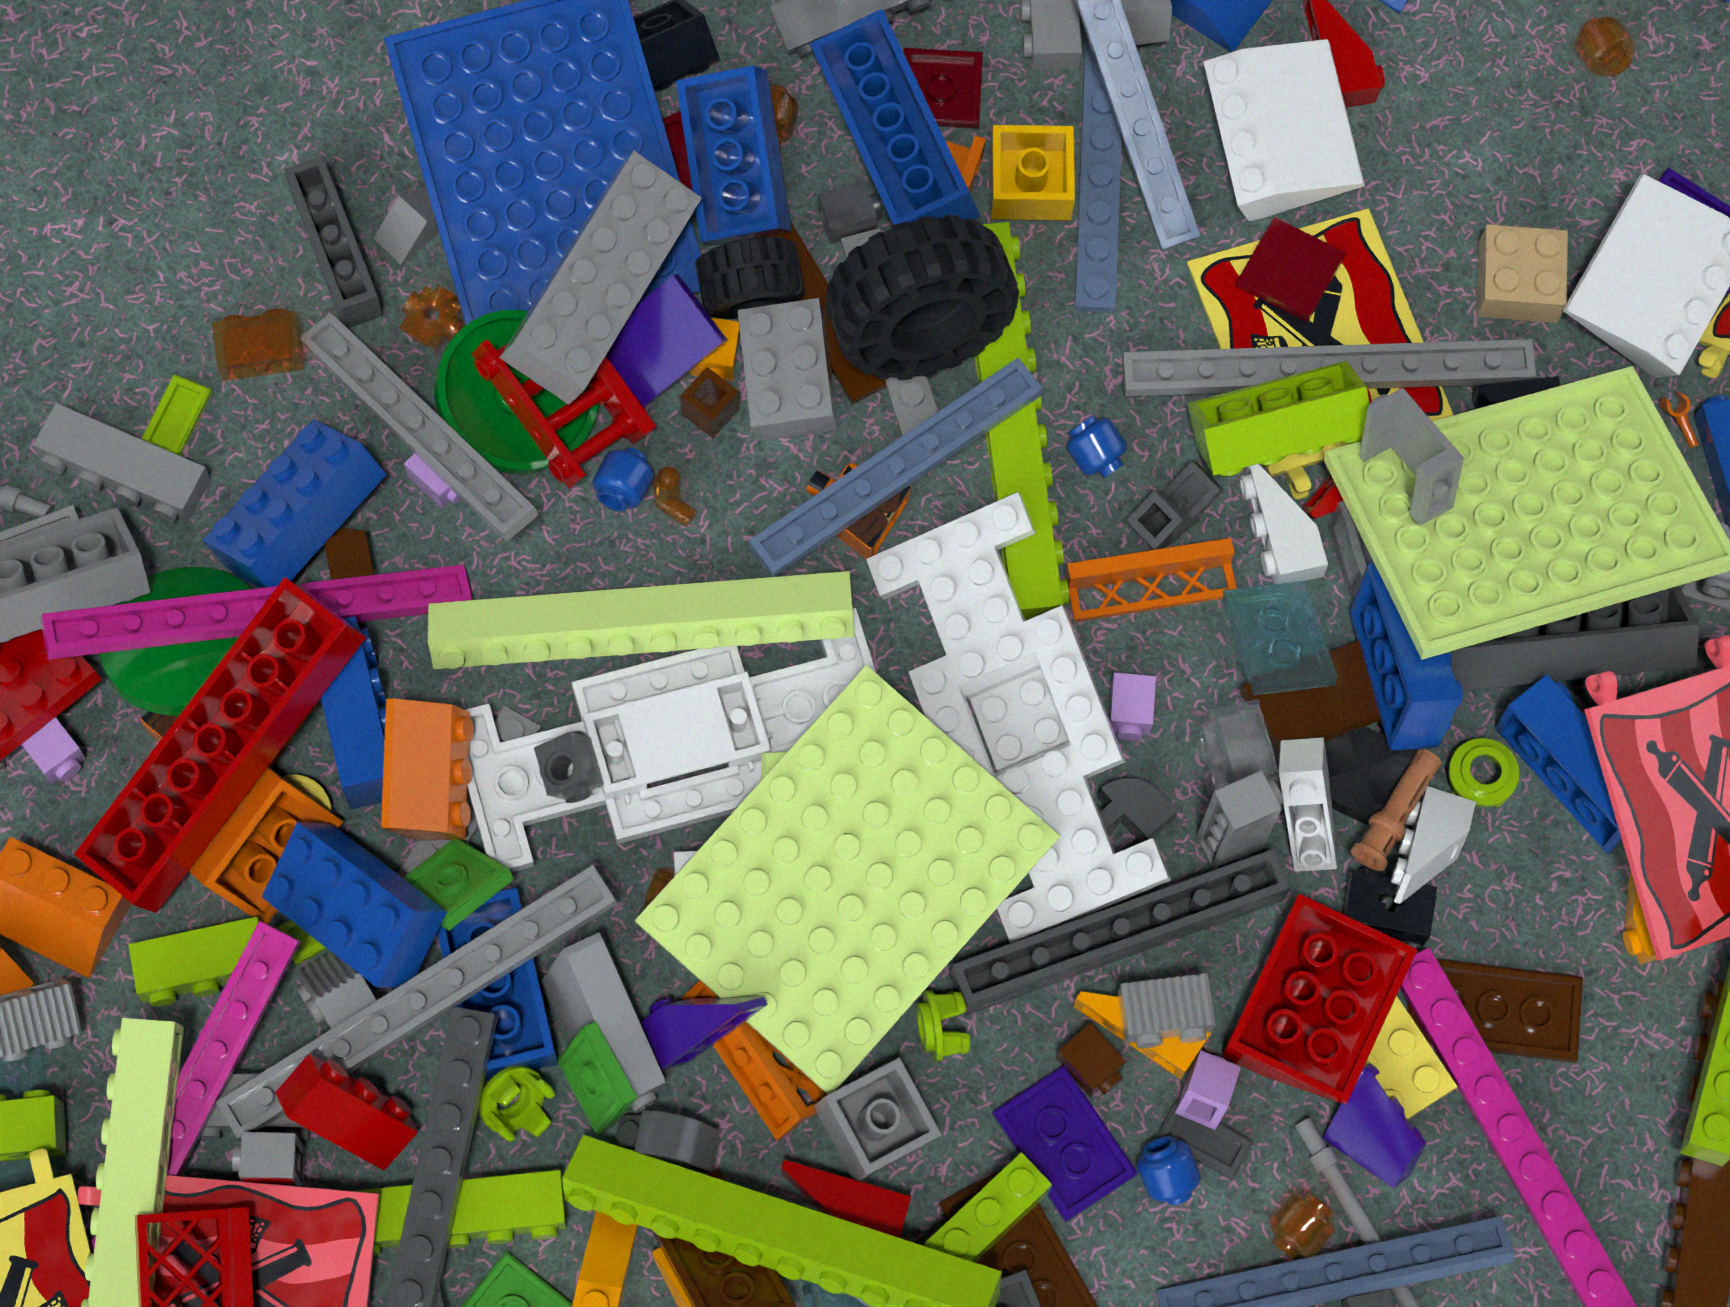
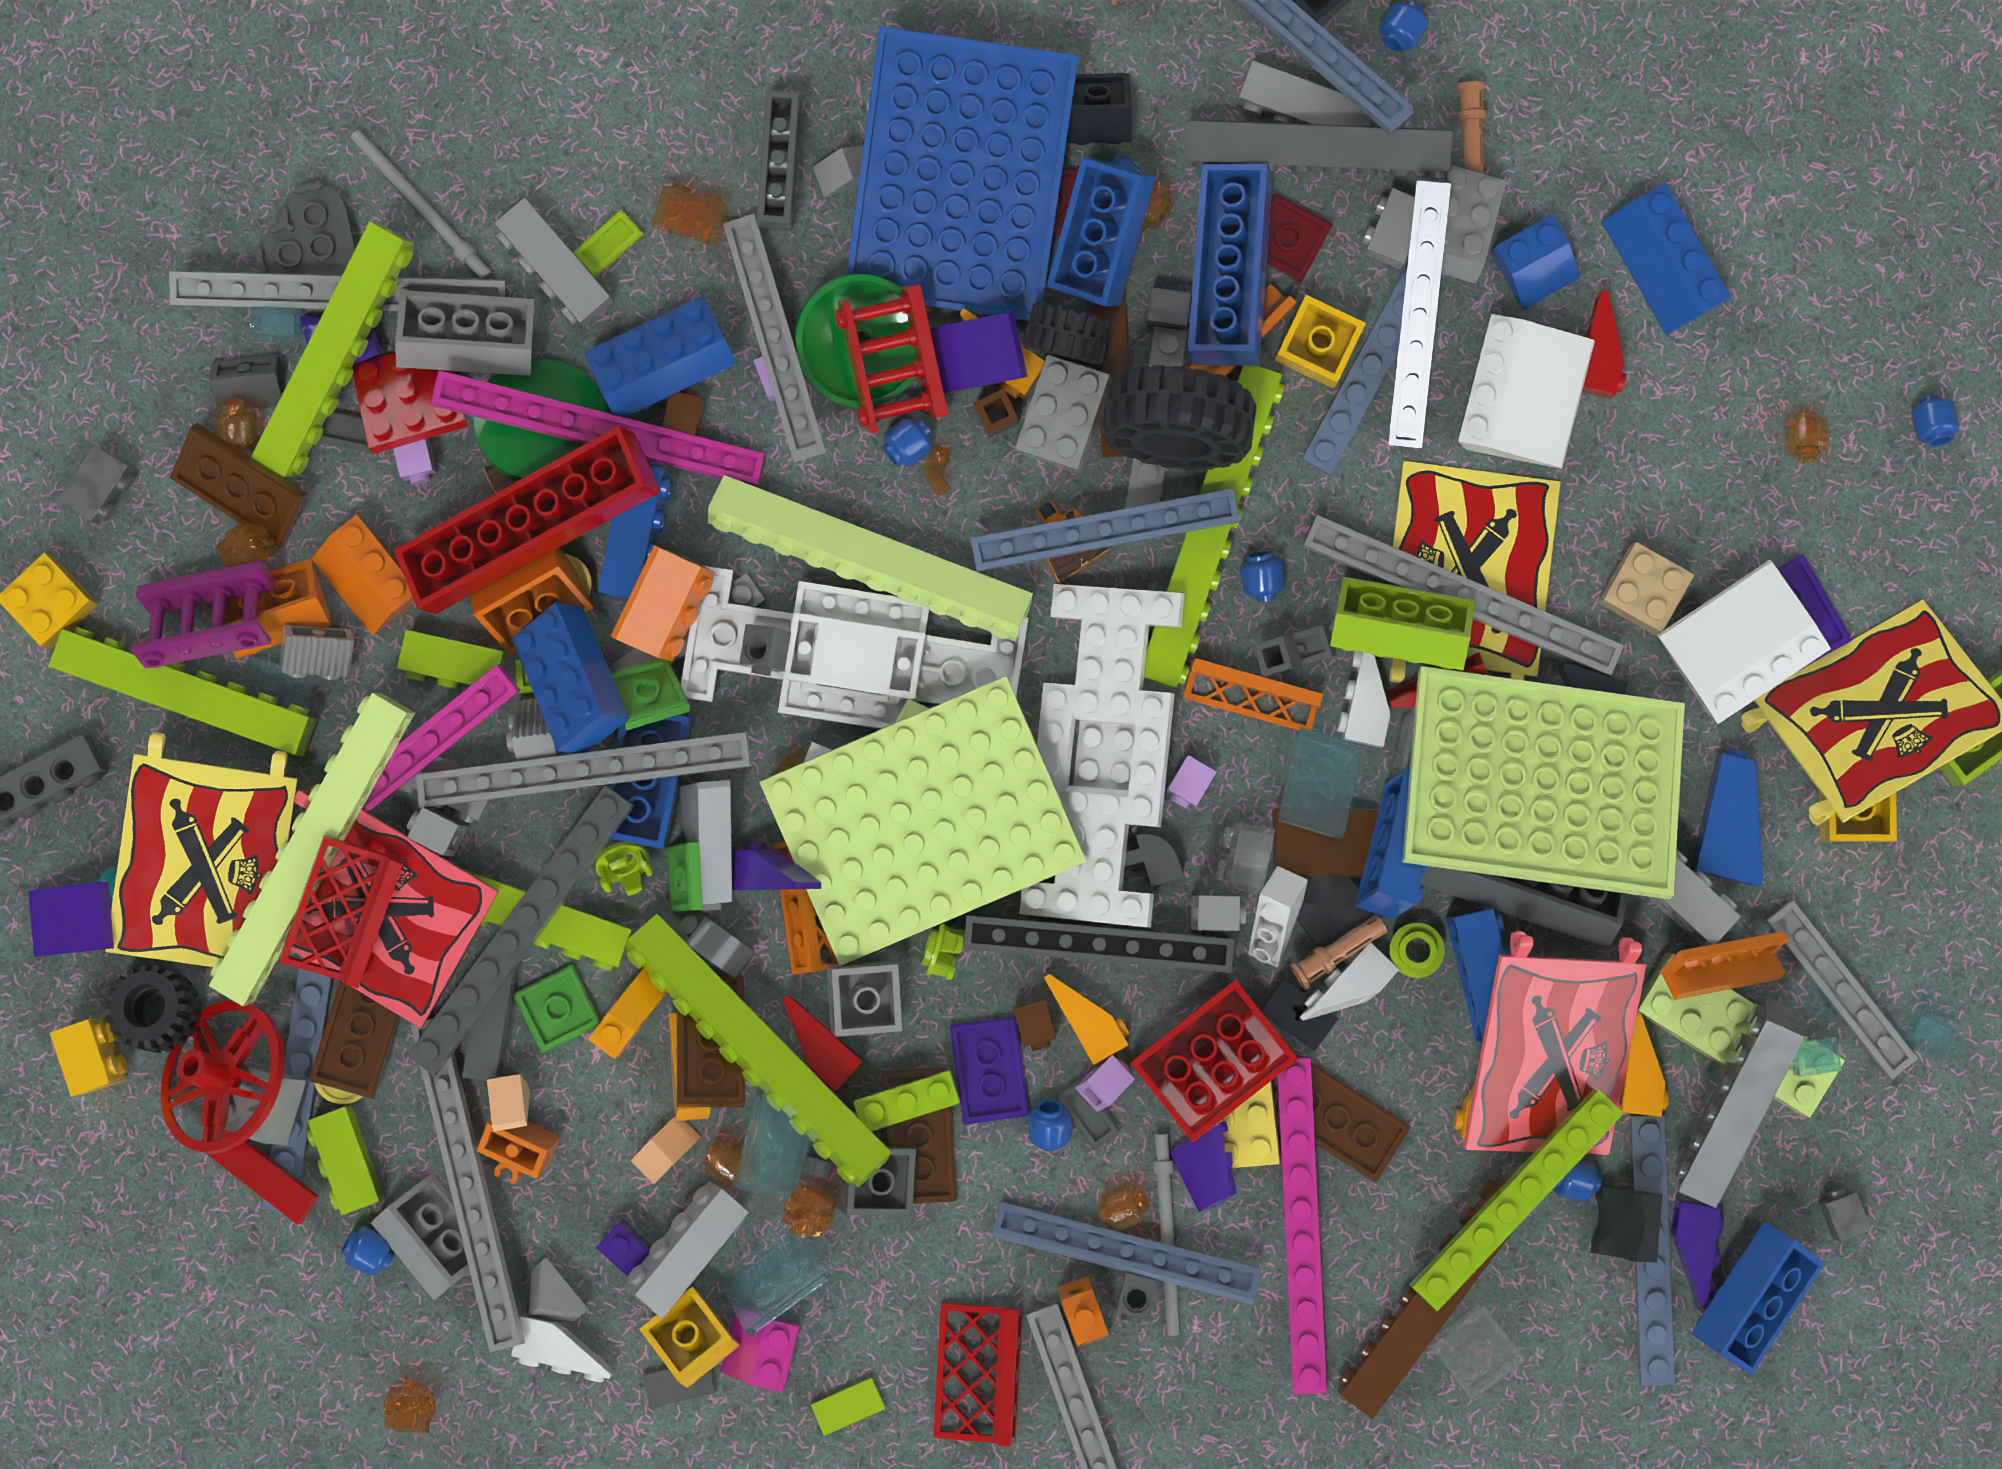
camera: 30 degrees right, 15 degrees up
(347, 1111) = (501, 823): red brick -> none
(431, 332) = (816, 261): clear orange brick -> none
(600, 278) = (954, 289): light grey brick -> none
(1166, 1010) = (1100, 1018): light grey brick -> none
(1290, 269) = (1476, 504): dark red tile -> none
(1402, 425) = (1481, 738): light grey panel -> none
(1681, 417) = (1706, 749): orange hand -> none

